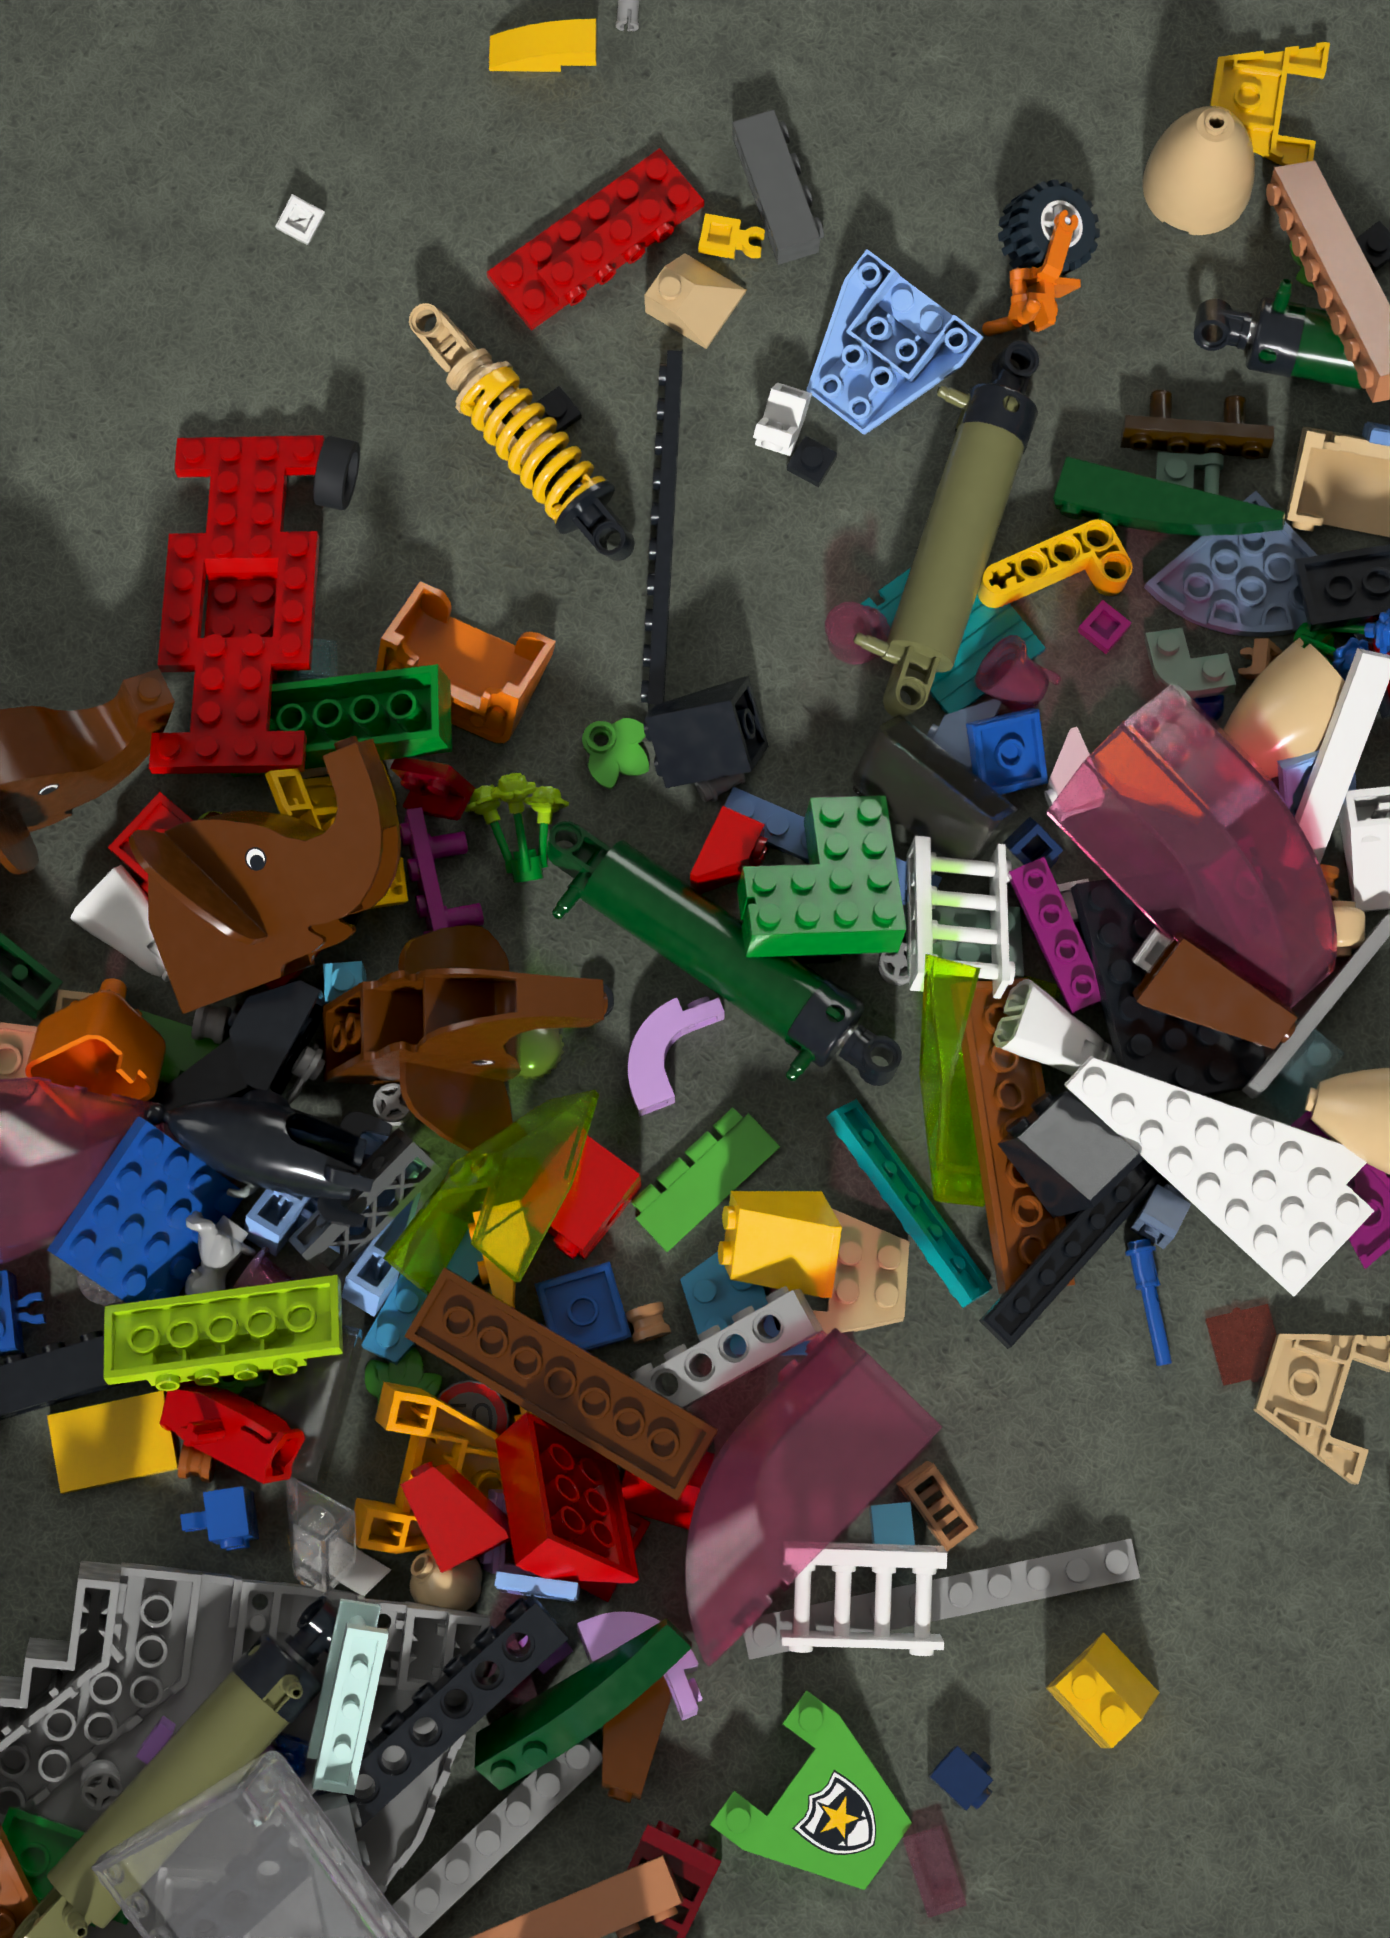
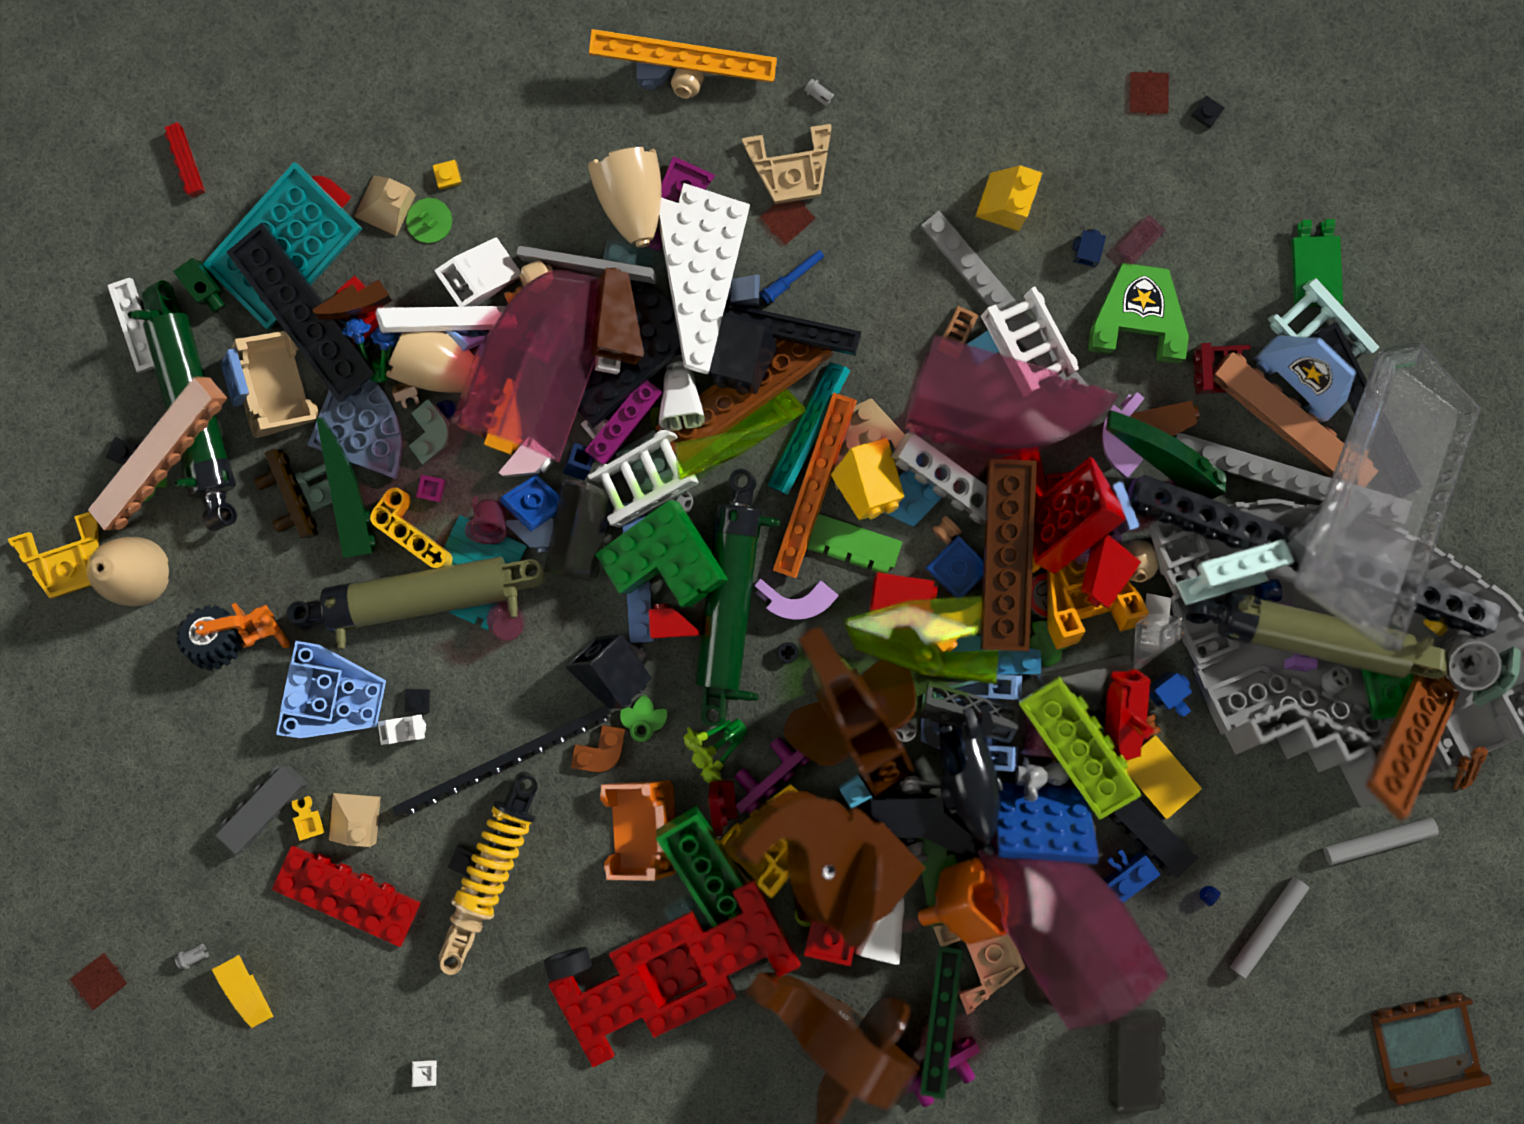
camera: 115 degrees left, 10 degrees up
(593, 671) = (604, 756): none -> dark orange plate
(819, 1164) = (814, 485): none -> orange plate

